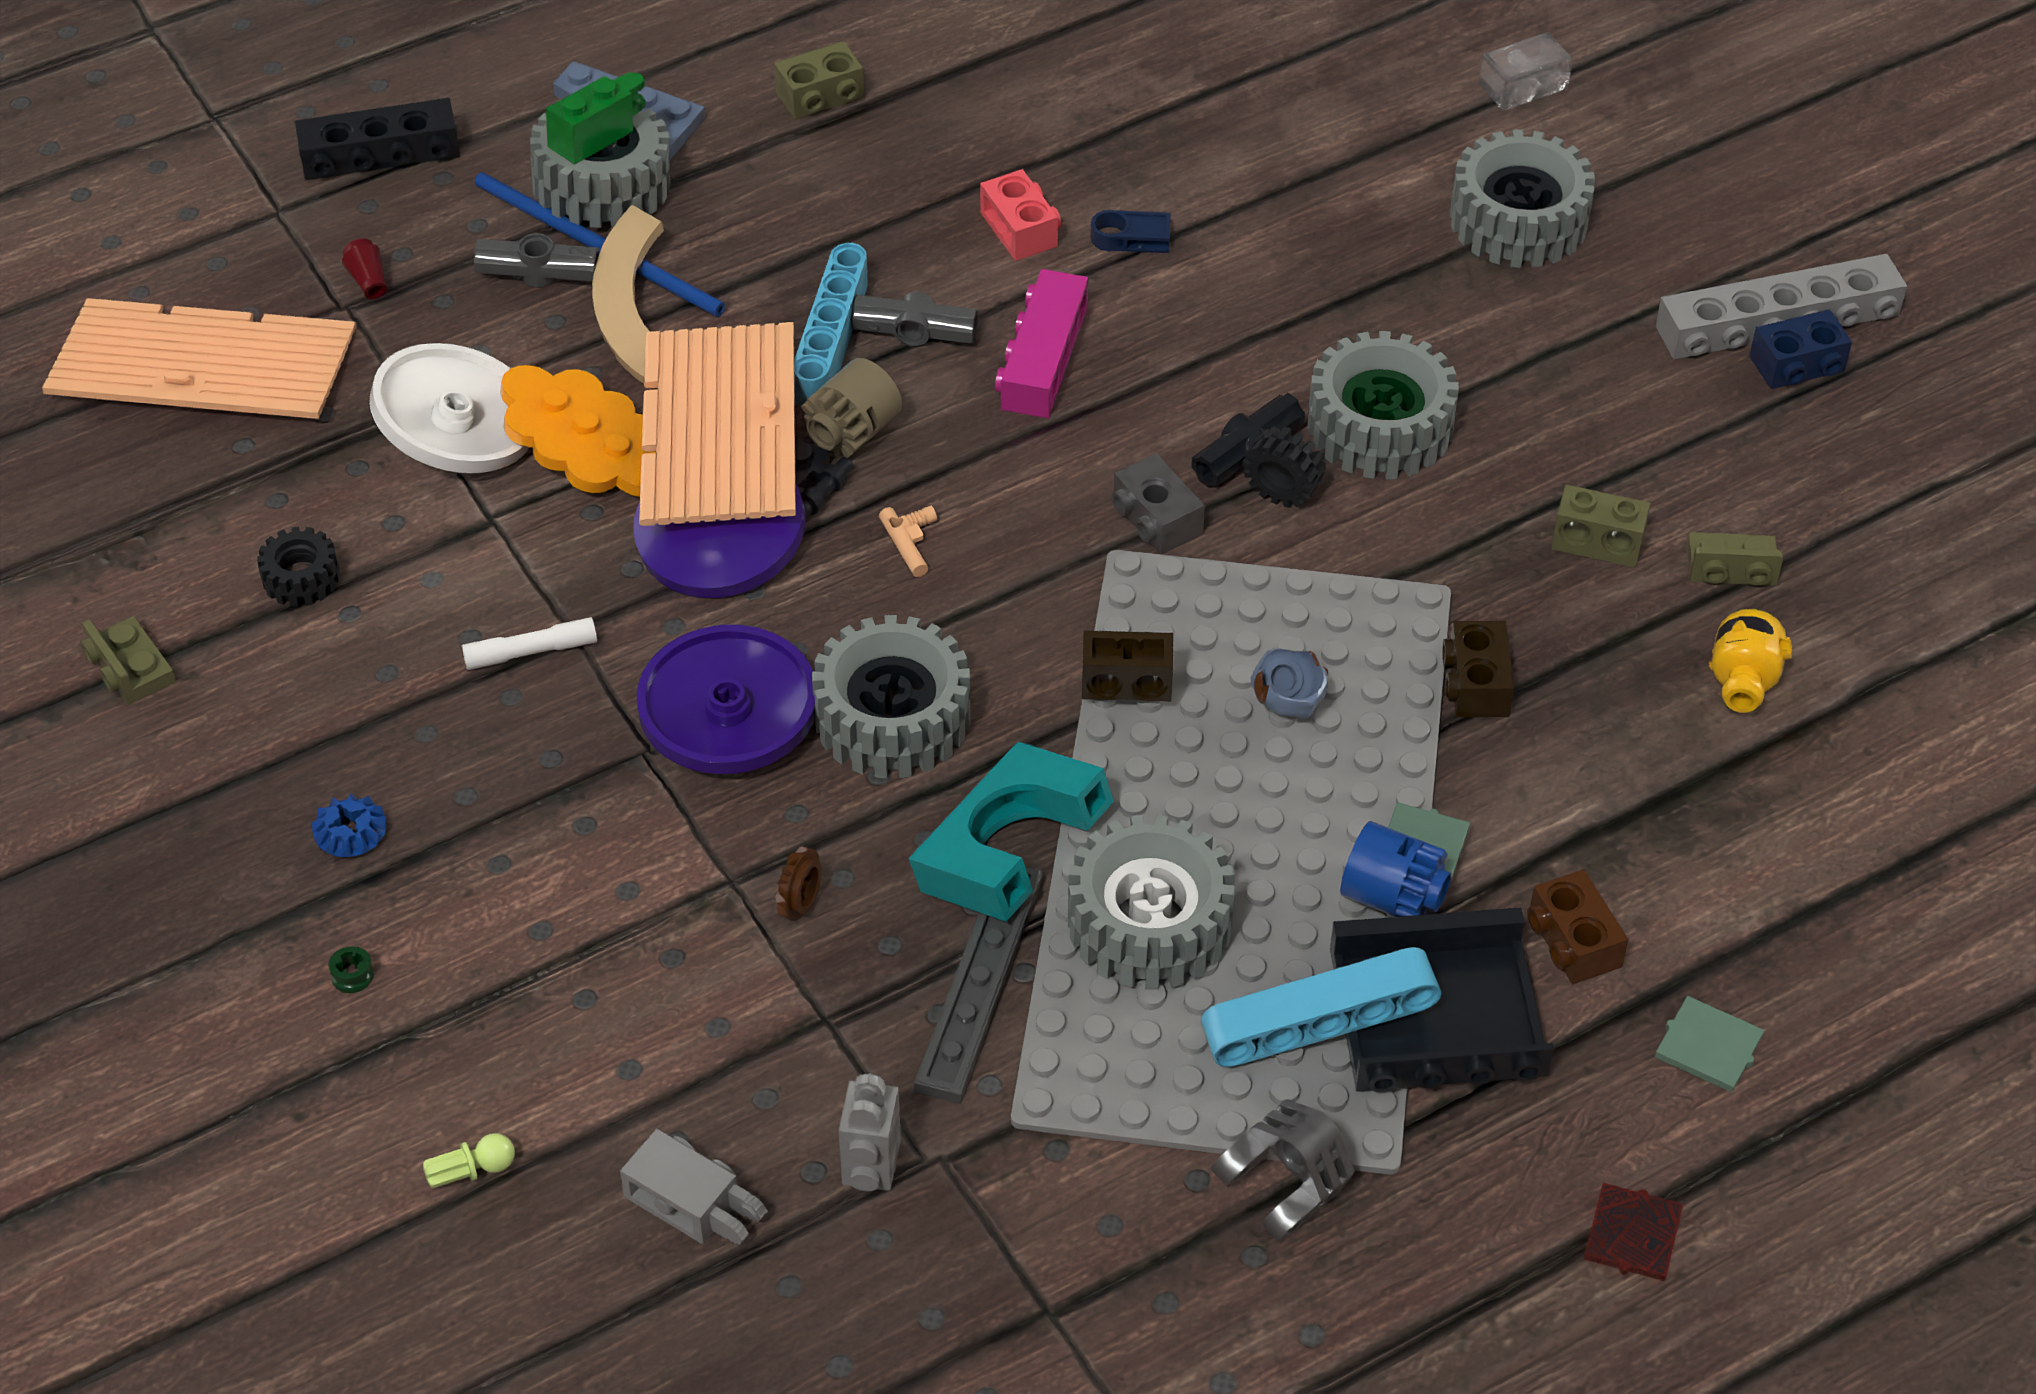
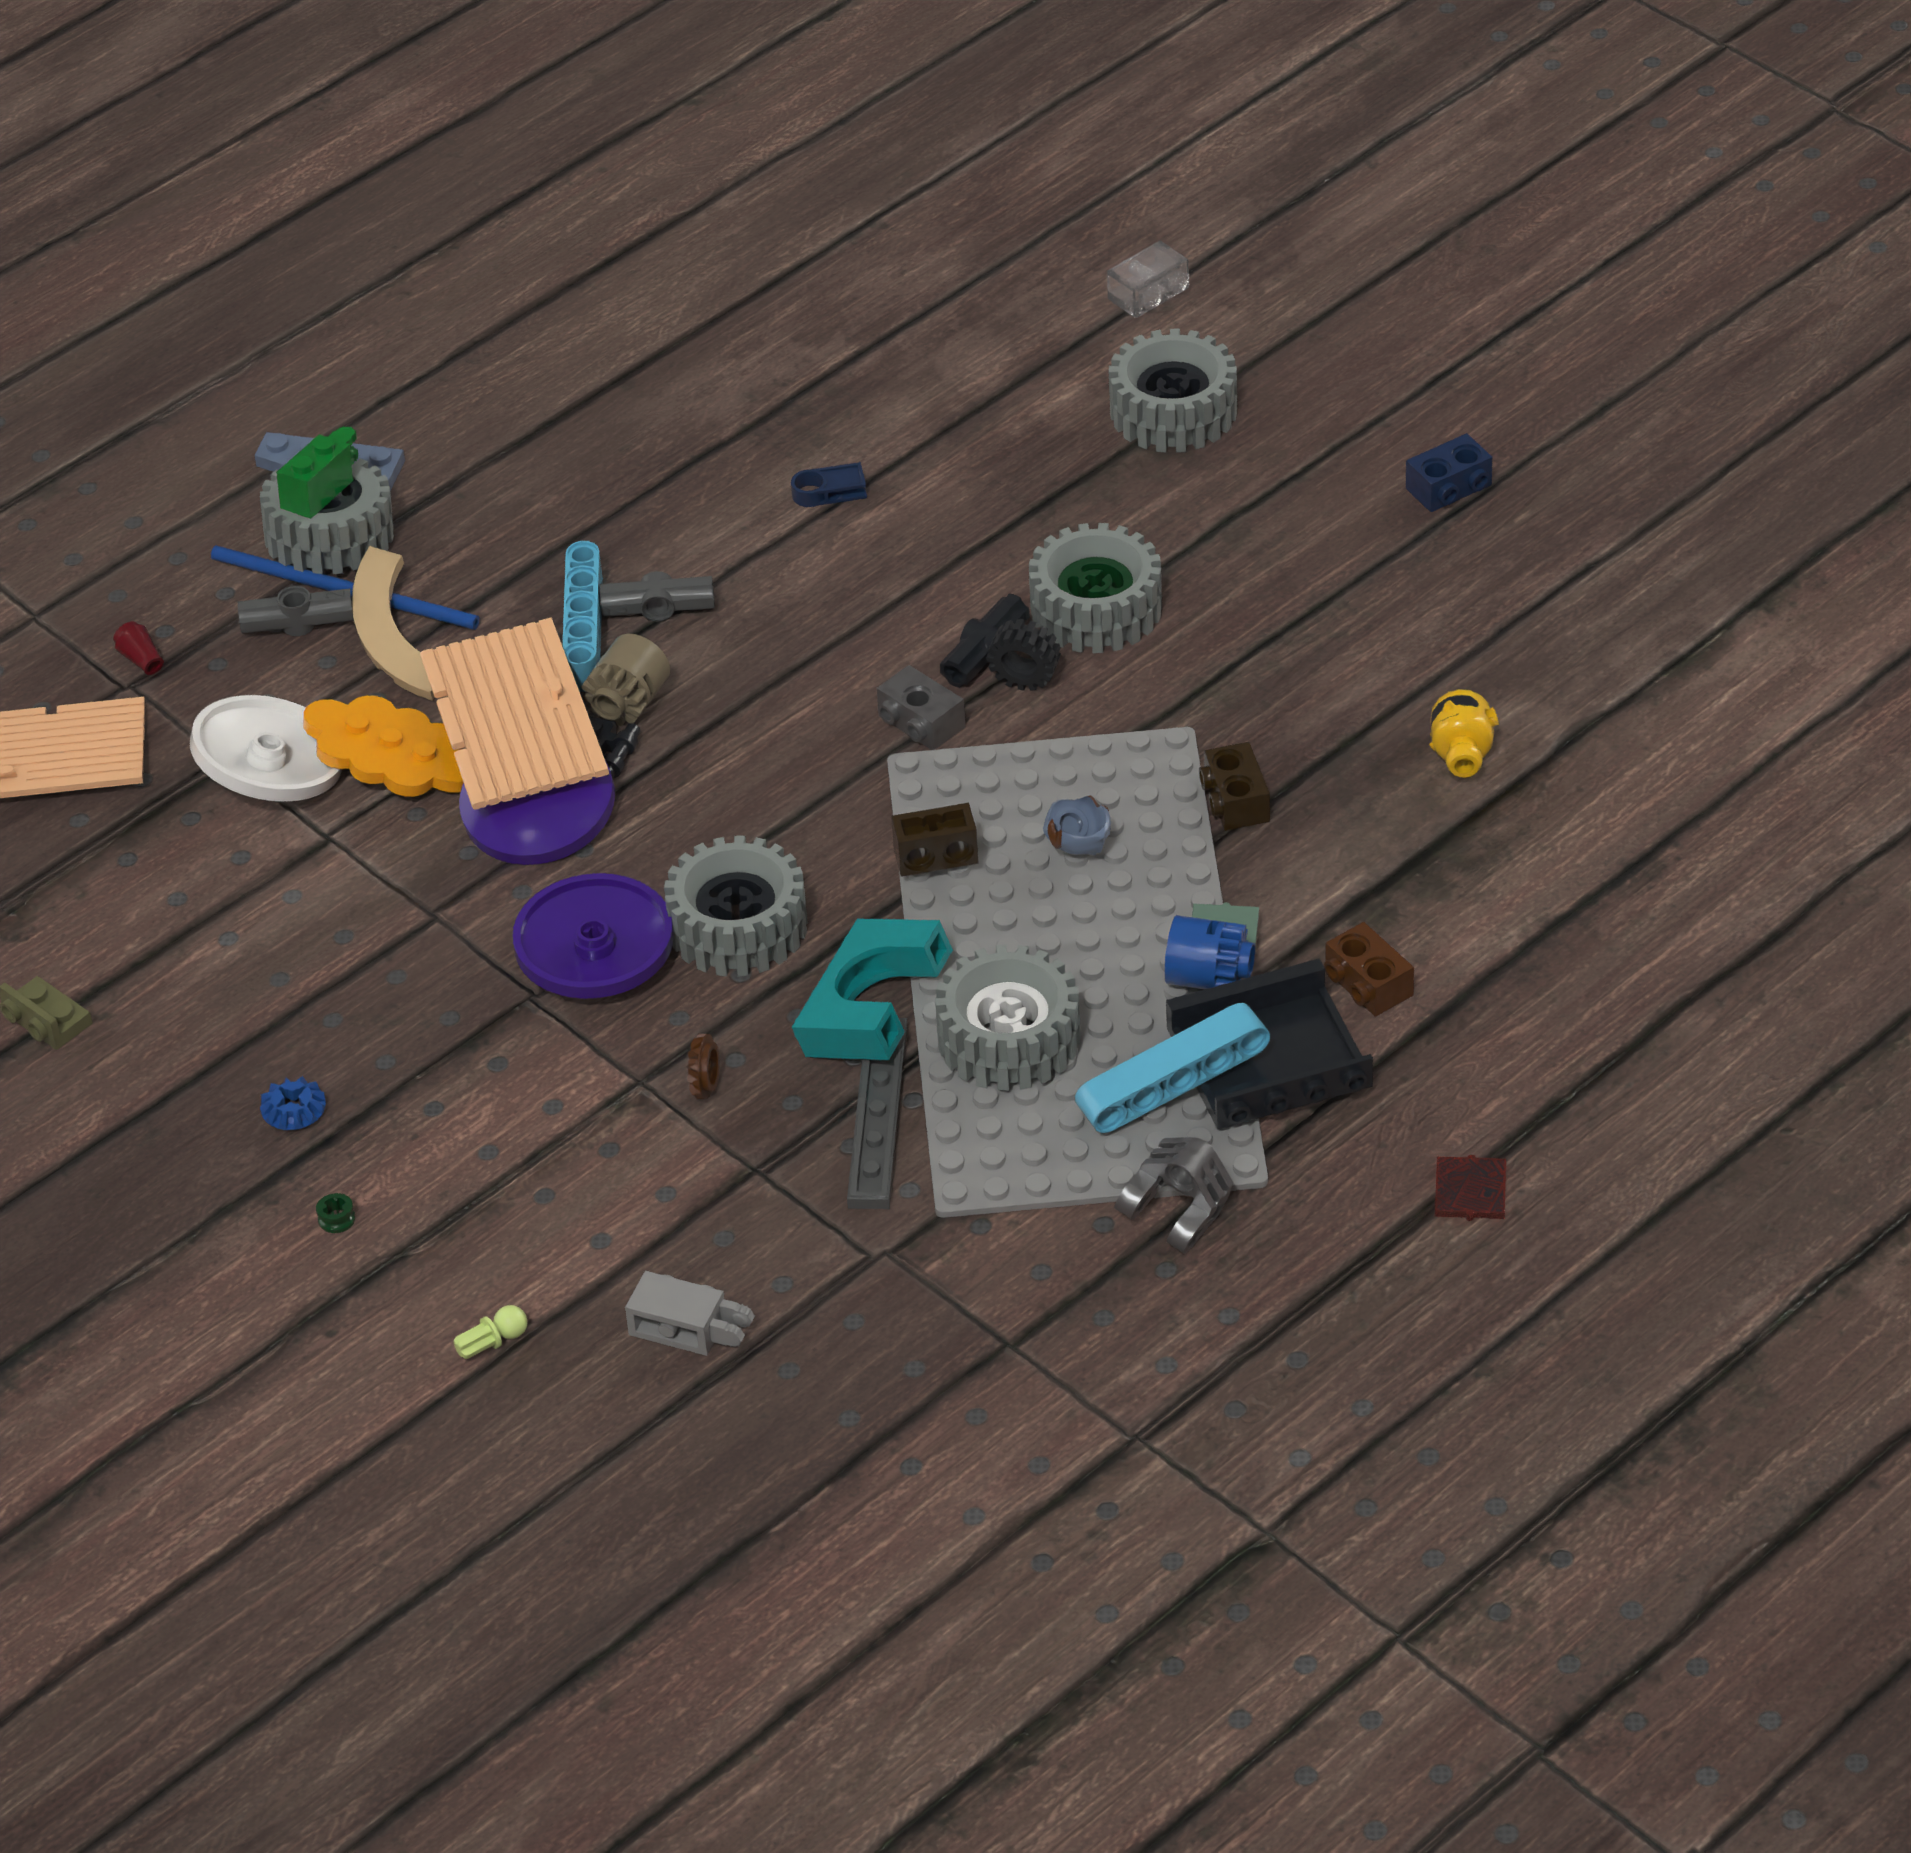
camera: 10 degrees left, 5 degrees down
(301, 584) = (174, 922): black tyre -> none
(377, 138) = (108, 534): black brick -> none
(501, 649) = (378, 938): white piece -> none
(819, 80) = (502, 406): olive brick -> none
(869, 1134) = (825, 1236): light grey hinge -> none
(906, 532) = (704, 775): light nougat hose -> none
(1019, 214) = (724, 489): coral brick -> none
(1042, 343) = (779, 594): dark pink brick -> none
(1600, 525) = (1310, 651): olive brick -> none
(1709, 1043) = (1499, 1037): sand green piece -> none
(1729, 313) = (1381, 453): light grey brick -> none
(1733, 558) = (1431, 657): olive bracket -> none

